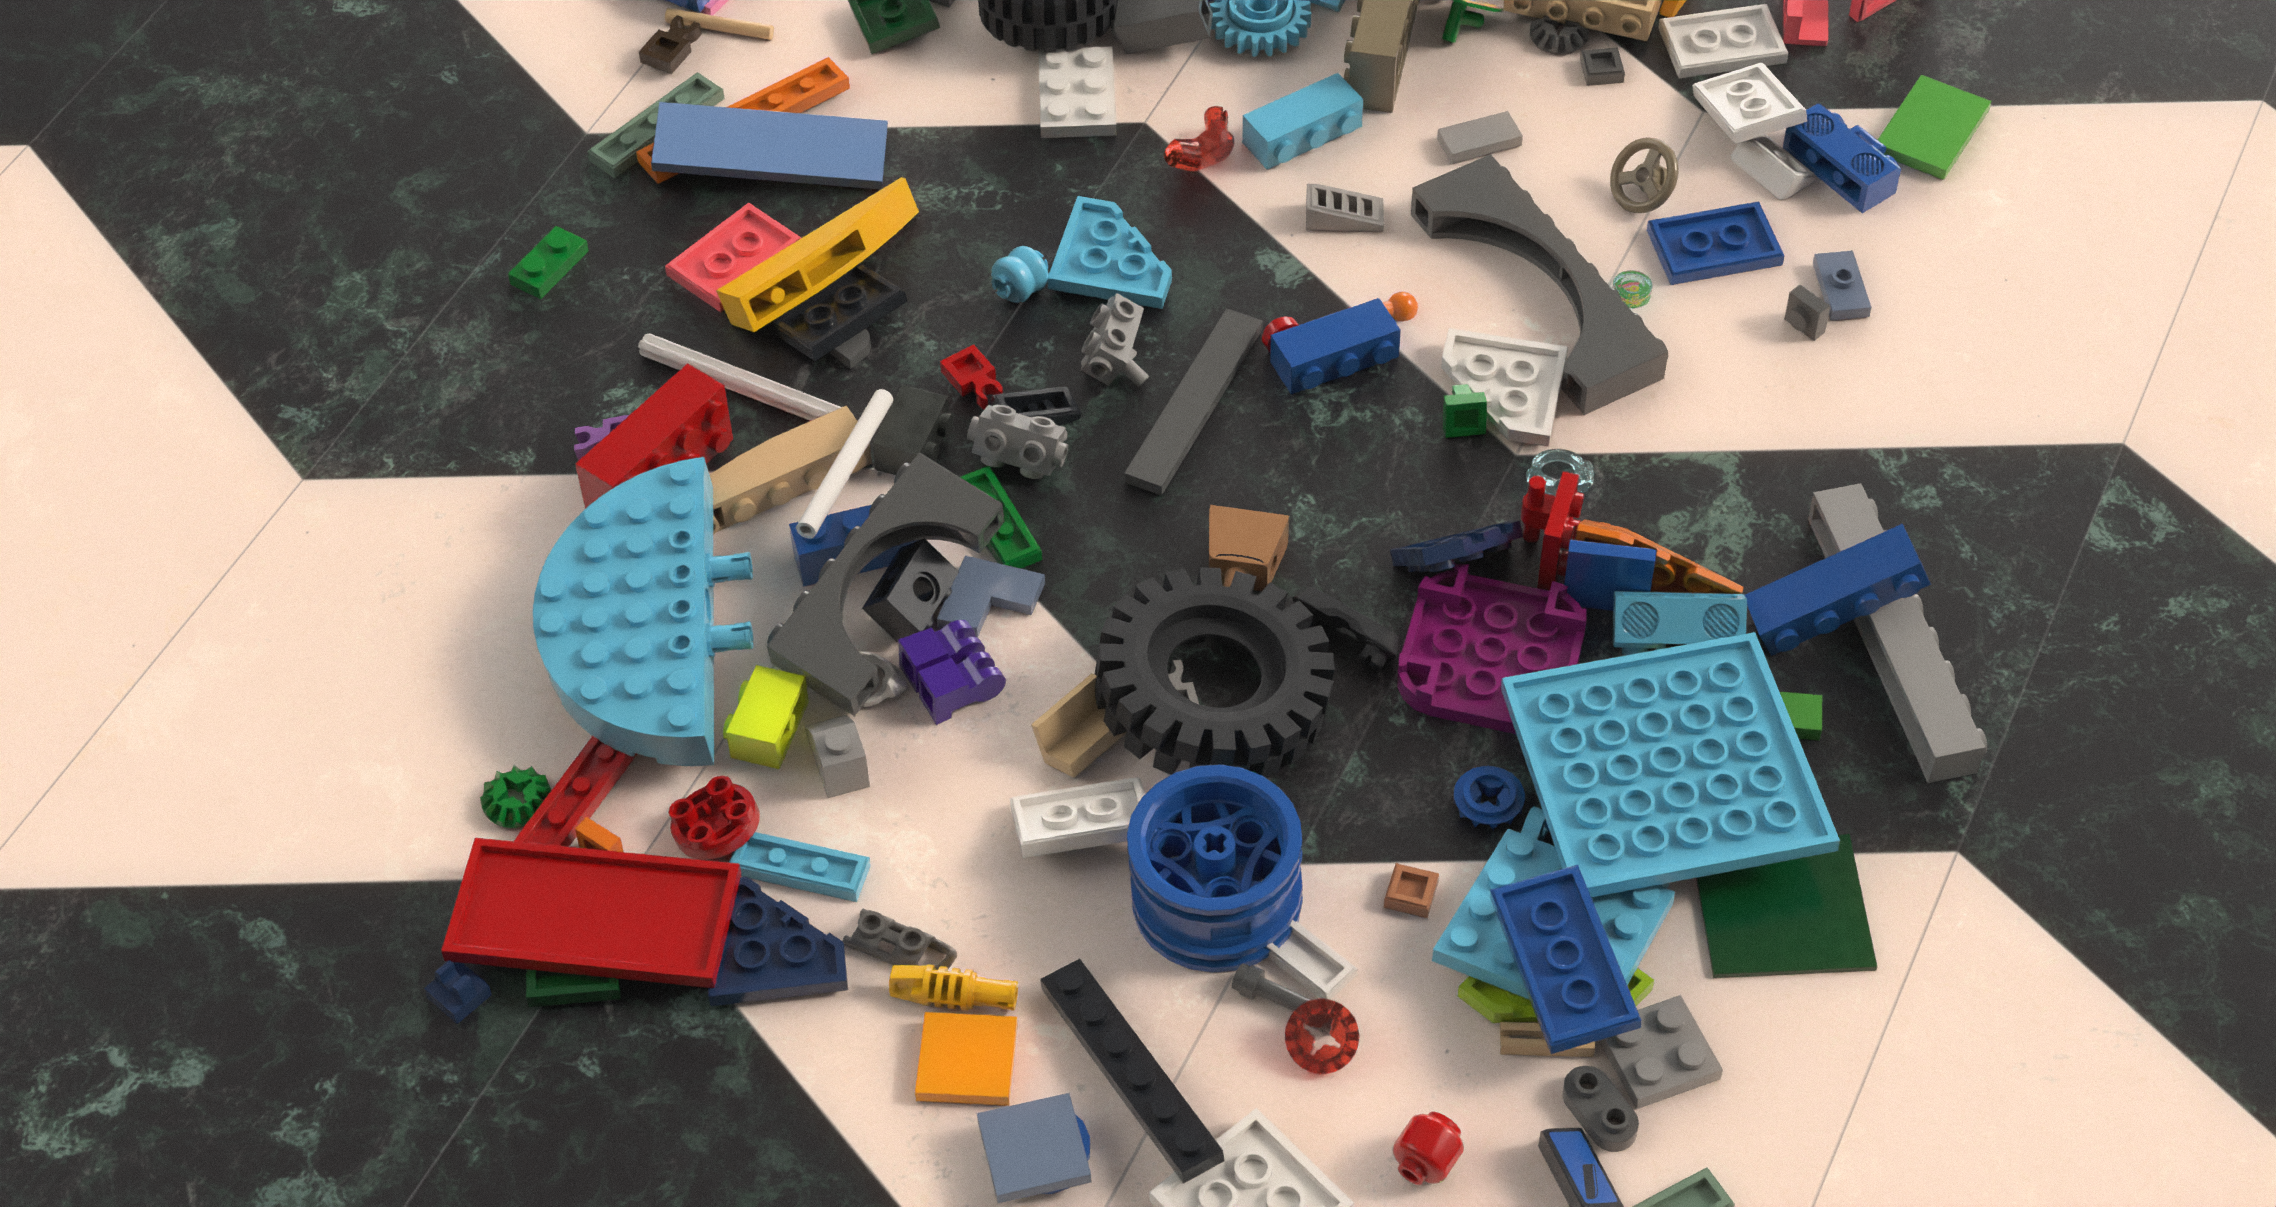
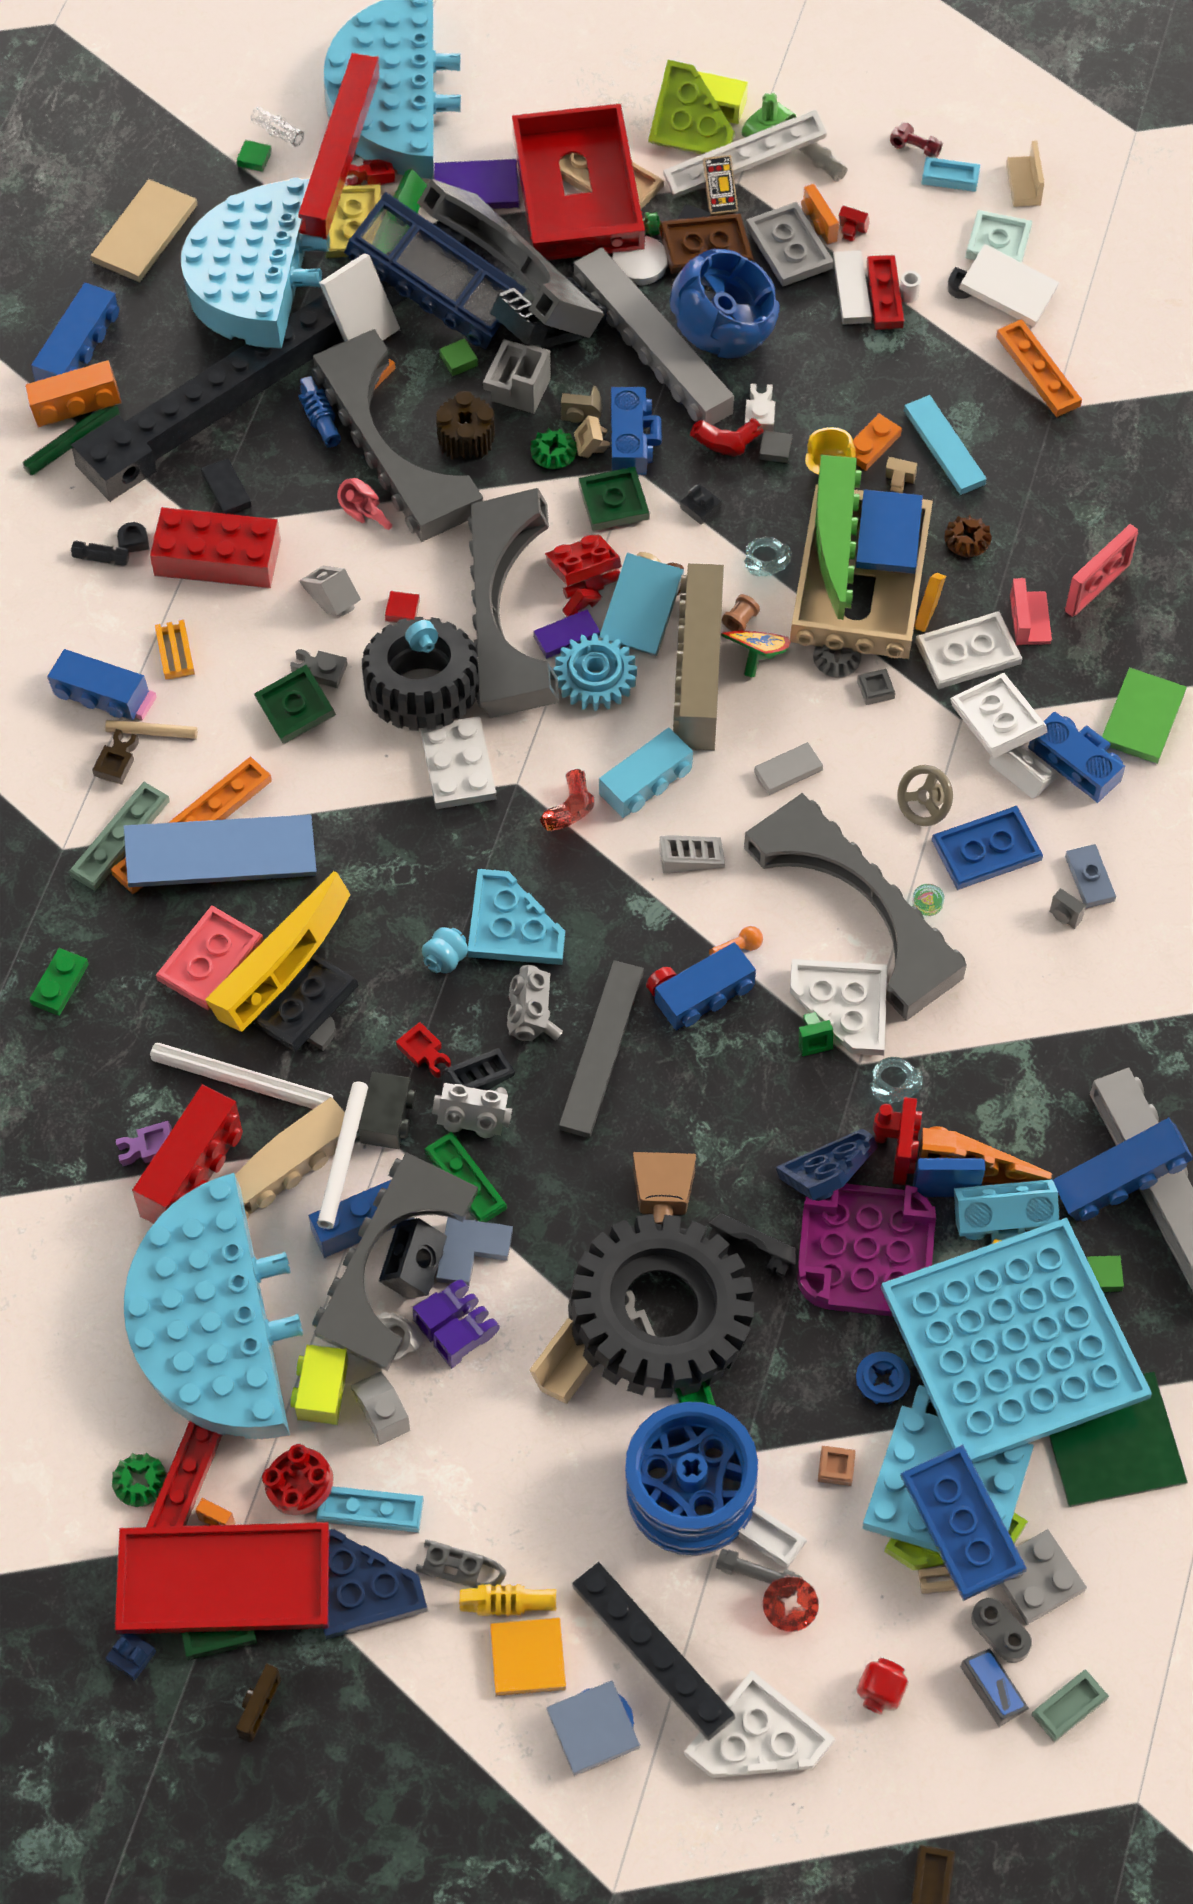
camera: 10 degrees left, 10 degrees up
(605, 1064) = (257, 1703): none -> dark brown plate
(1075, 816) = (578, 1440): white tile -> none

